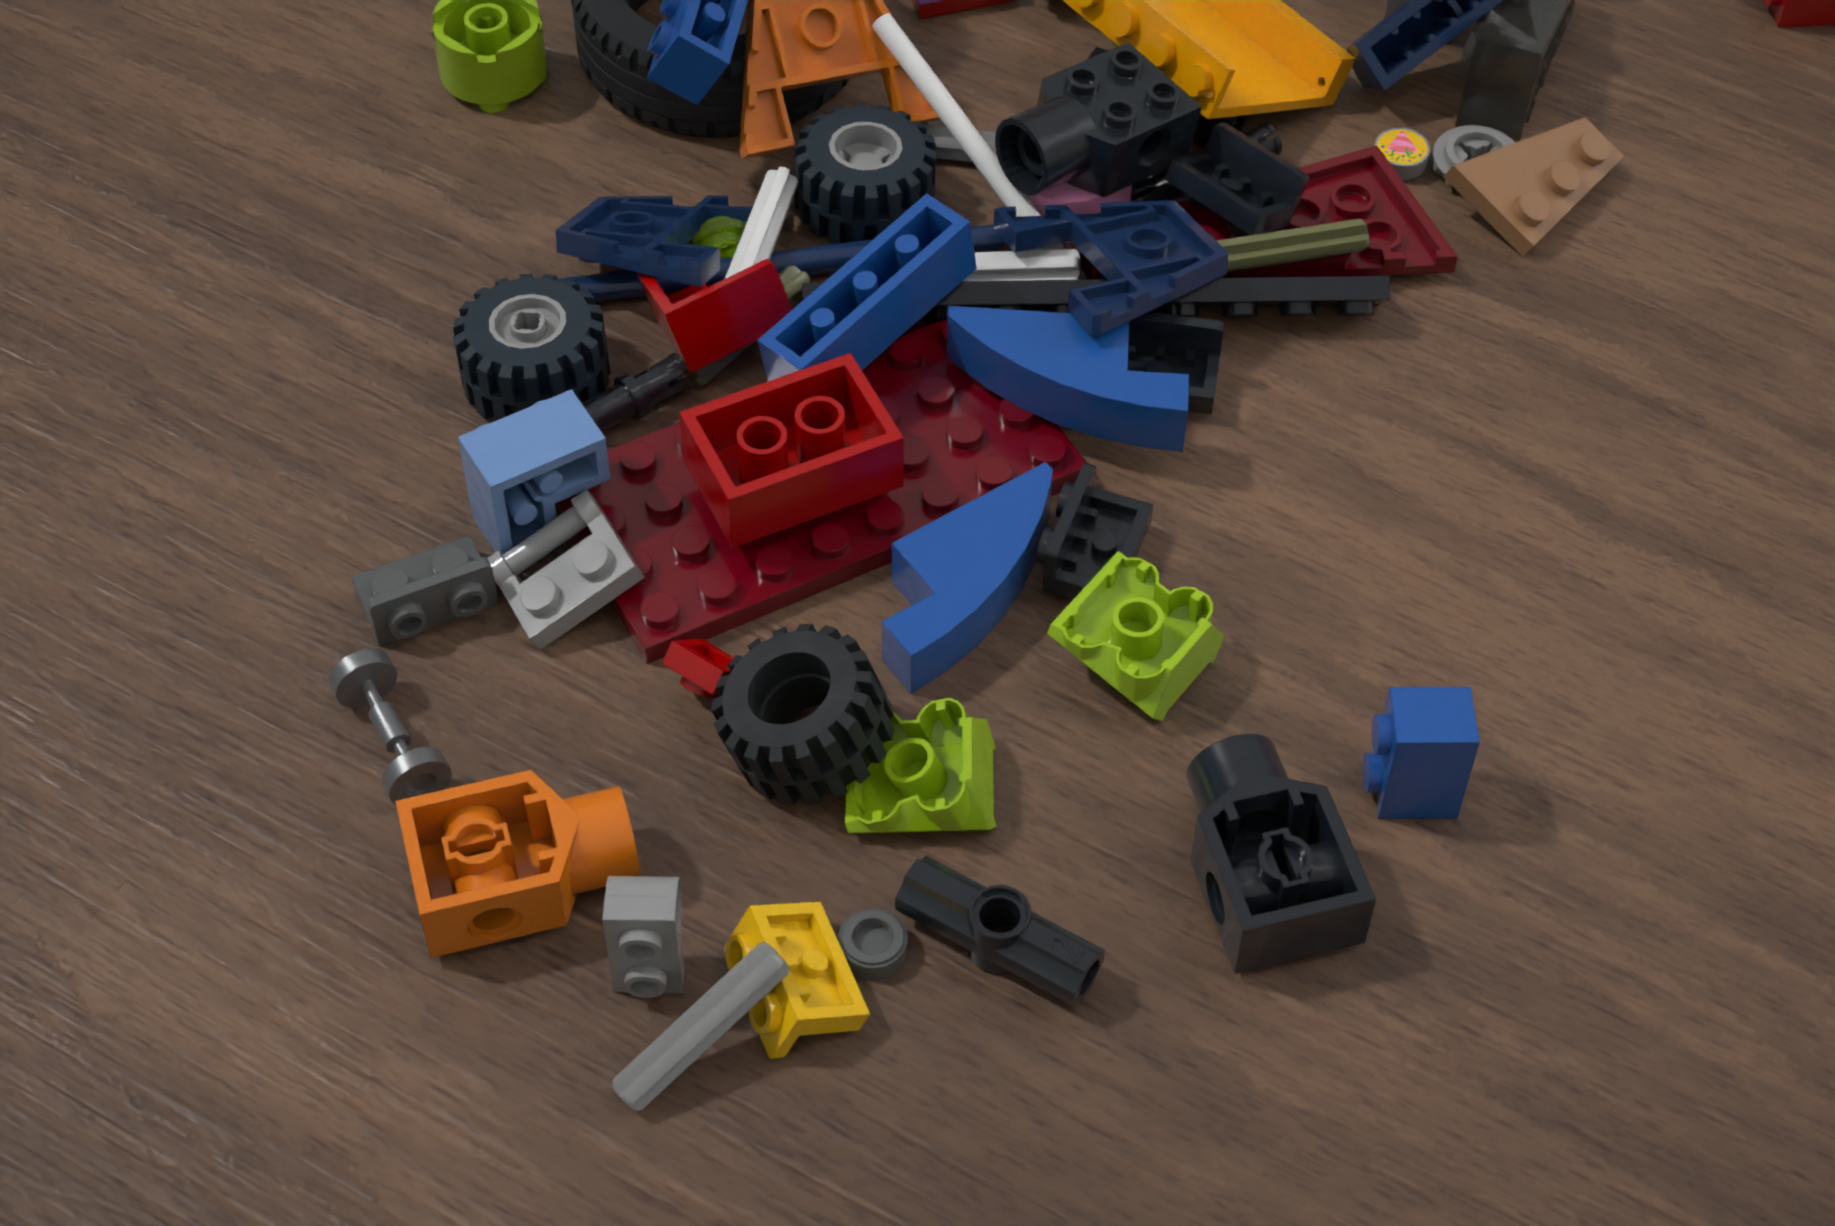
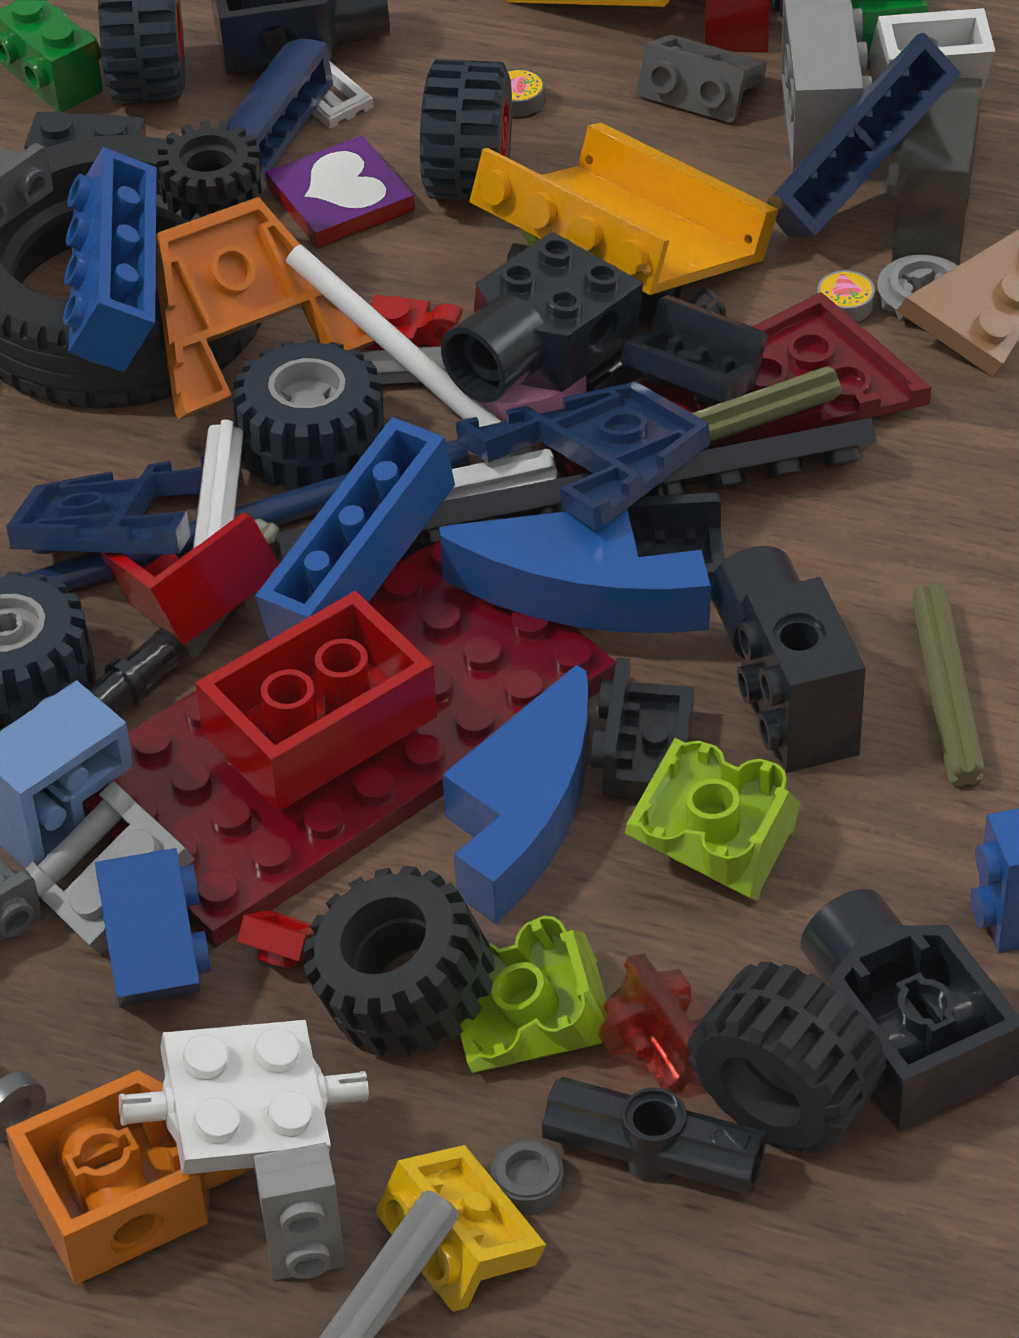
camera: 10 degrees left, 5 degrees down
(584, 633) = (149, 926): none -> blue brick
(616, 814) = (241, 1094): none -> white plate
(720, 233) = (176, 498): clear neon green plate -> none
(986, 102) = (416, 319): none -> red plate
(1024, 823) = (651, 1021): none -> clear red hips
(1139, 883) = (787, 1056): none -> black tyre
(1252, 494) = (792, 657): none -> black brick
(1397, 549) = (948, 685): none -> olive axle

